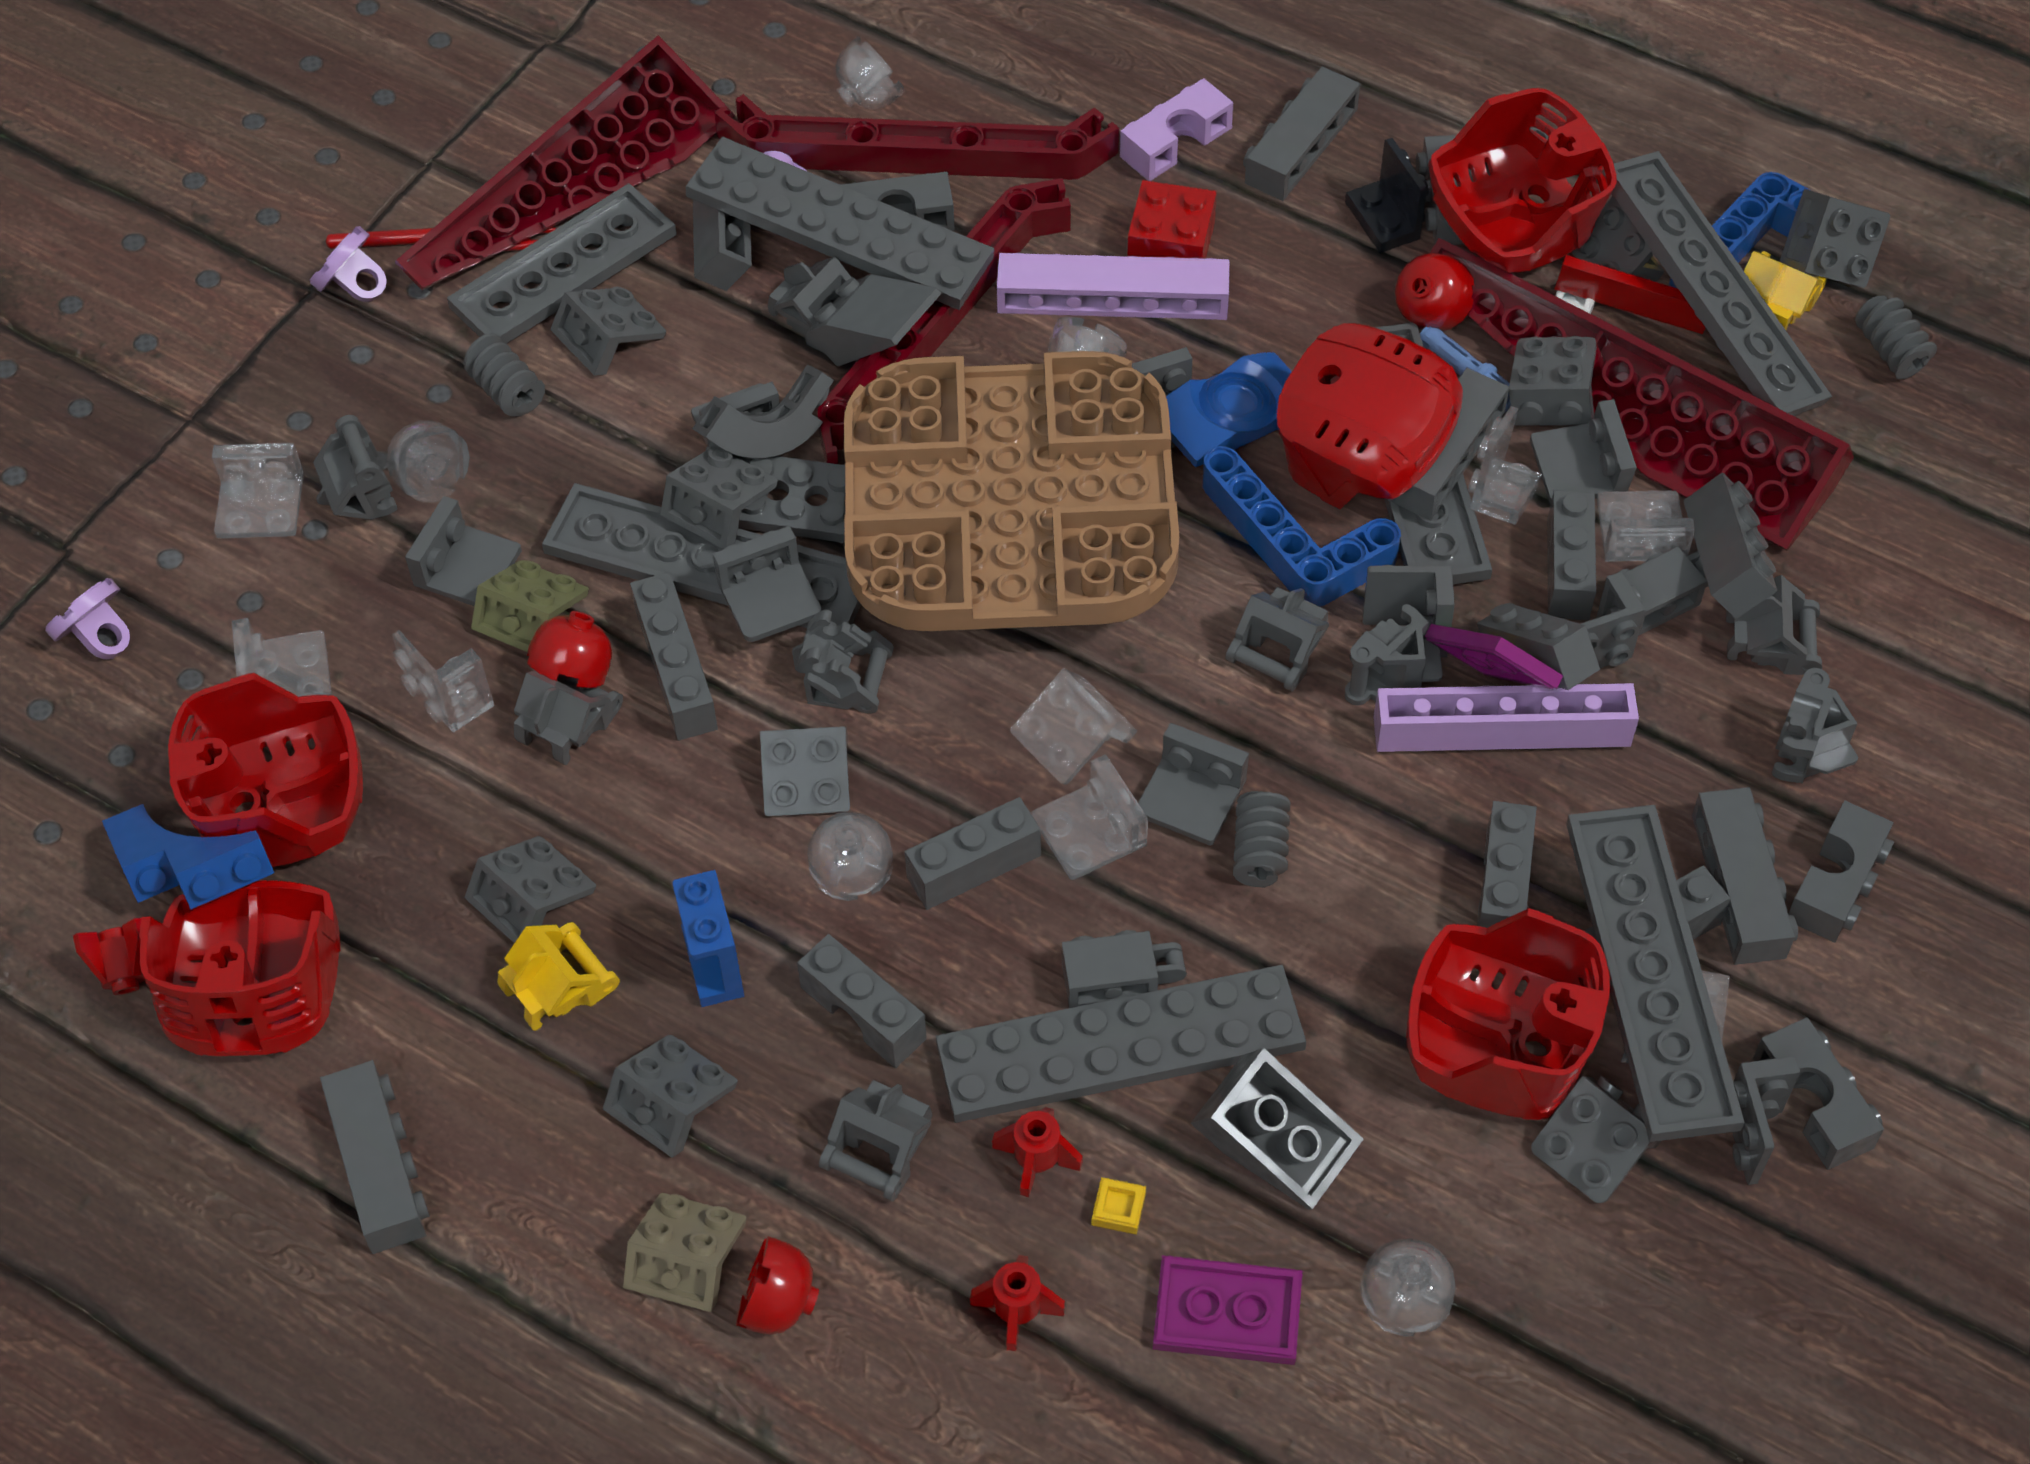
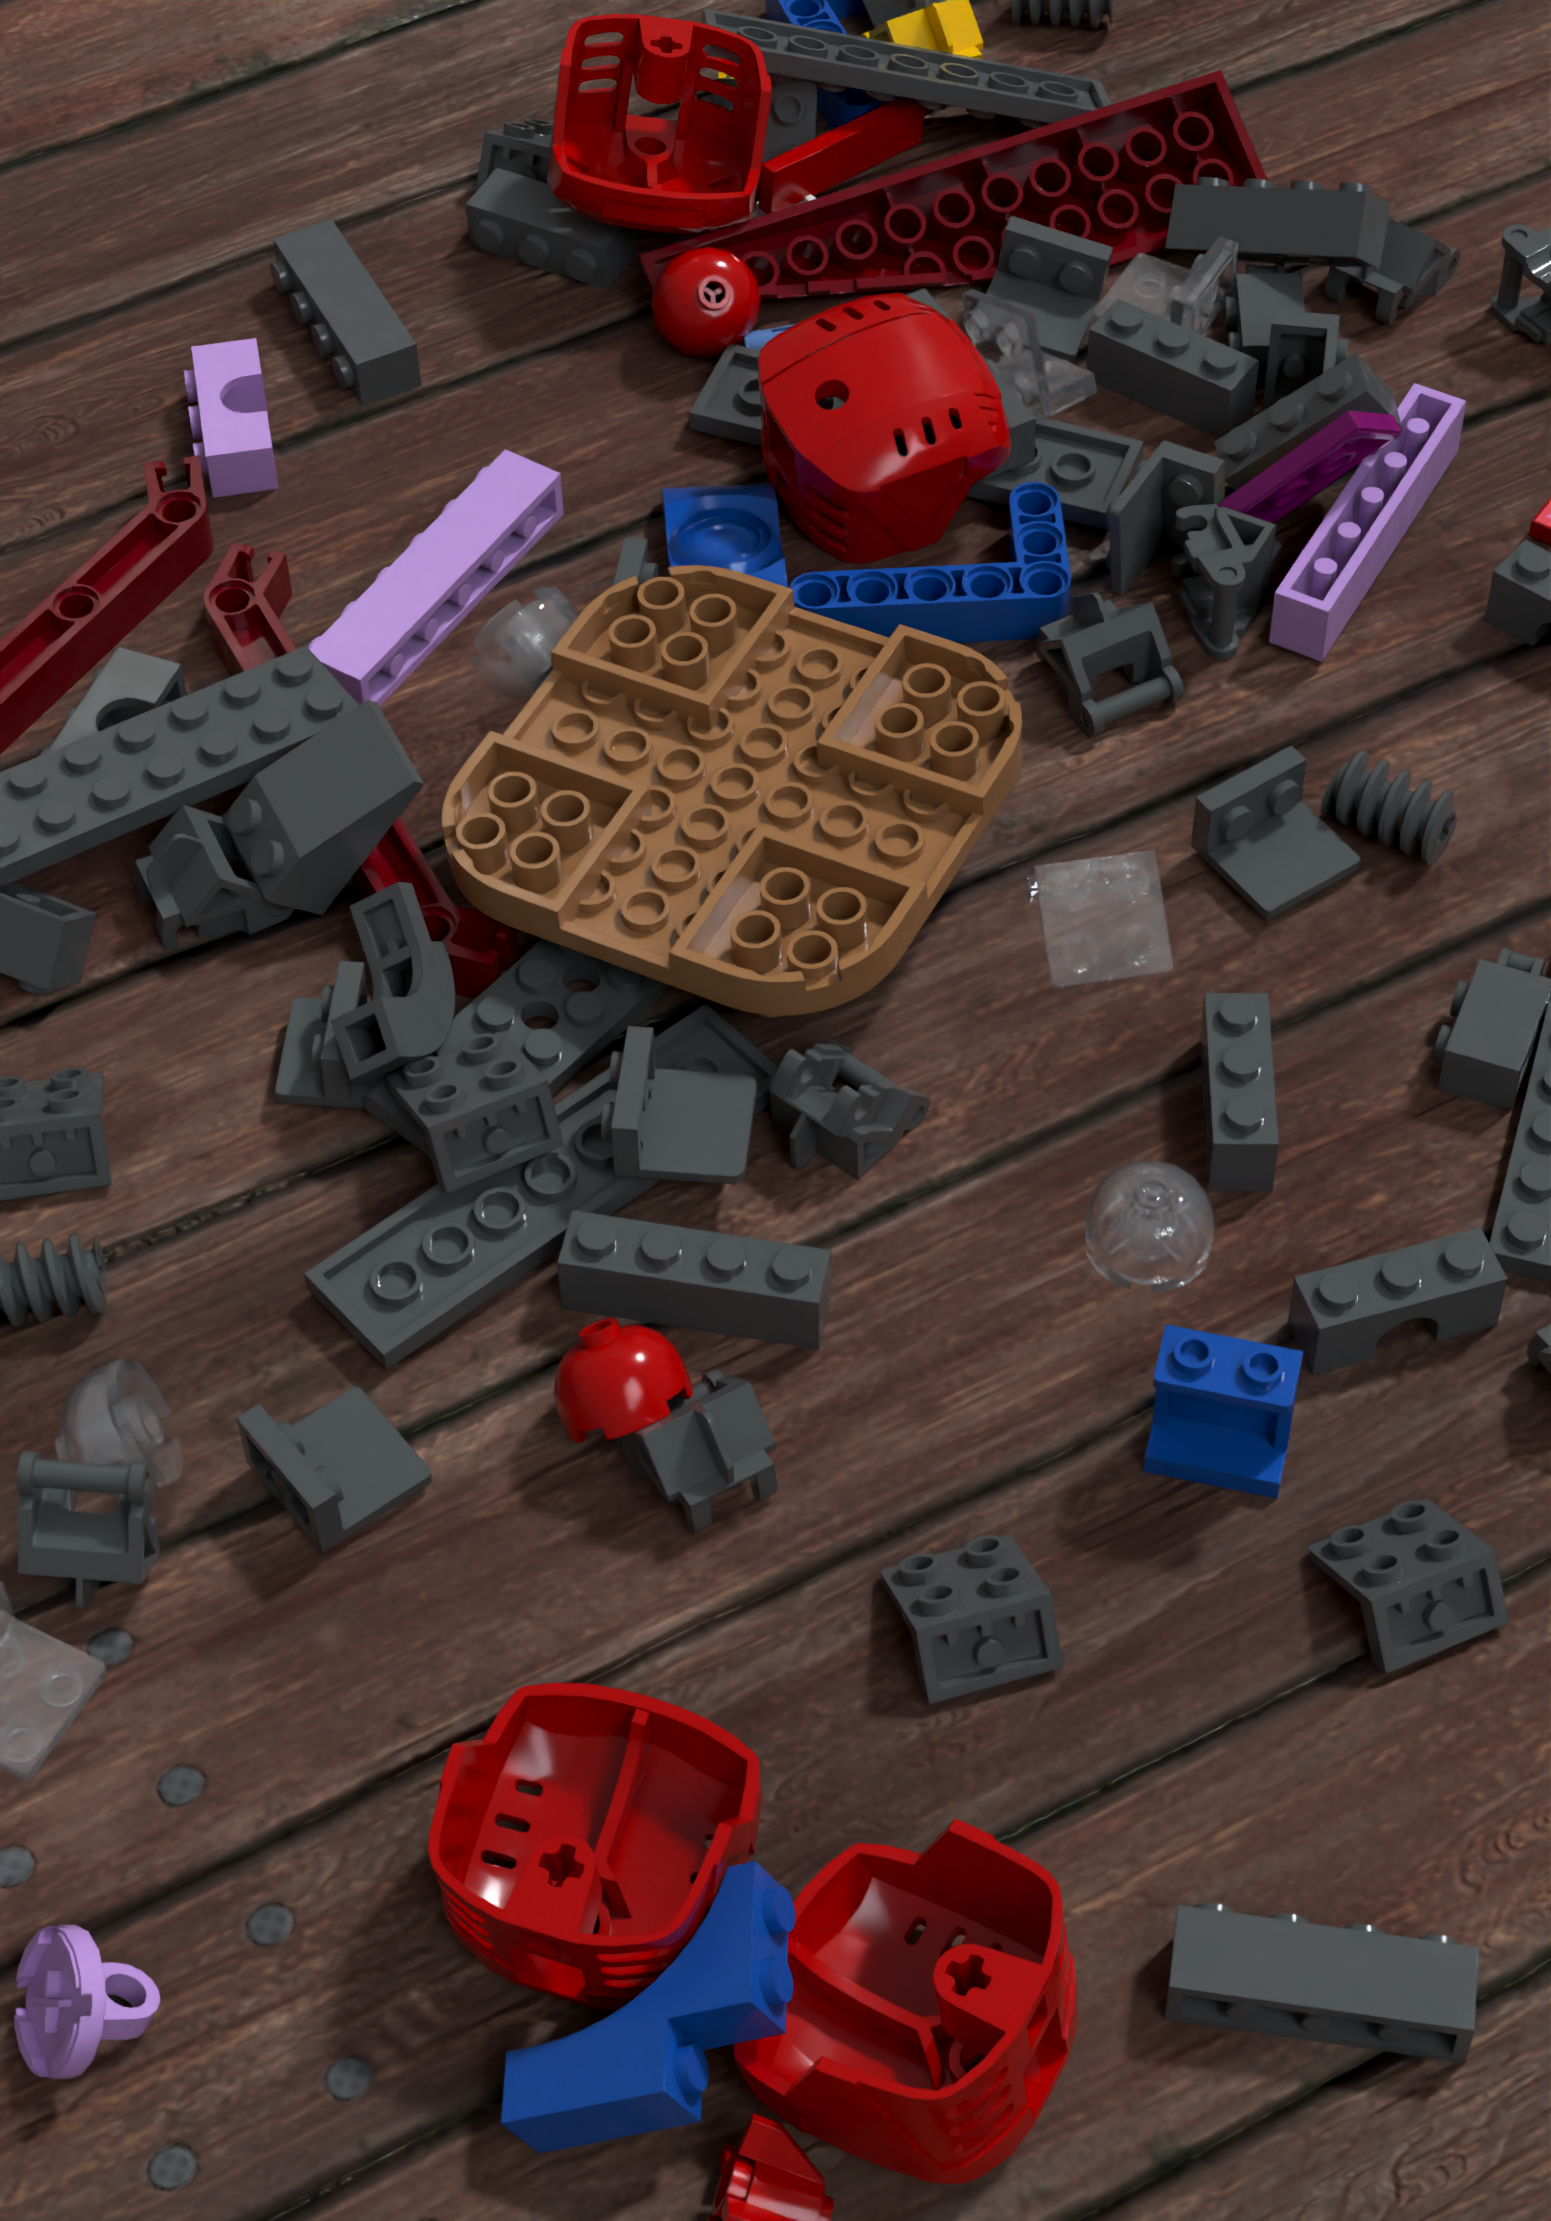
camera: 60 degrees left, 5 degrees down
(291, 661) = (361, 1778): clear bracket -> none
(451, 693) = (551, 1575): clear bracket -> none
(520, 600) = (477, 1421): olive bracket -> none
(546, 979) = (1147, 1634): yellow piece -> none
(805, 771) = (980, 1210): dark grey bracket -> none
(1093, 822) = (1266, 940): clear bracket -> none
(1172, 221) = (390, 483): red brick -> none
(1393, 206) = (528, 274): black bracket -> none
(1553, 380) = (921, 249): dark grey bracket -> none

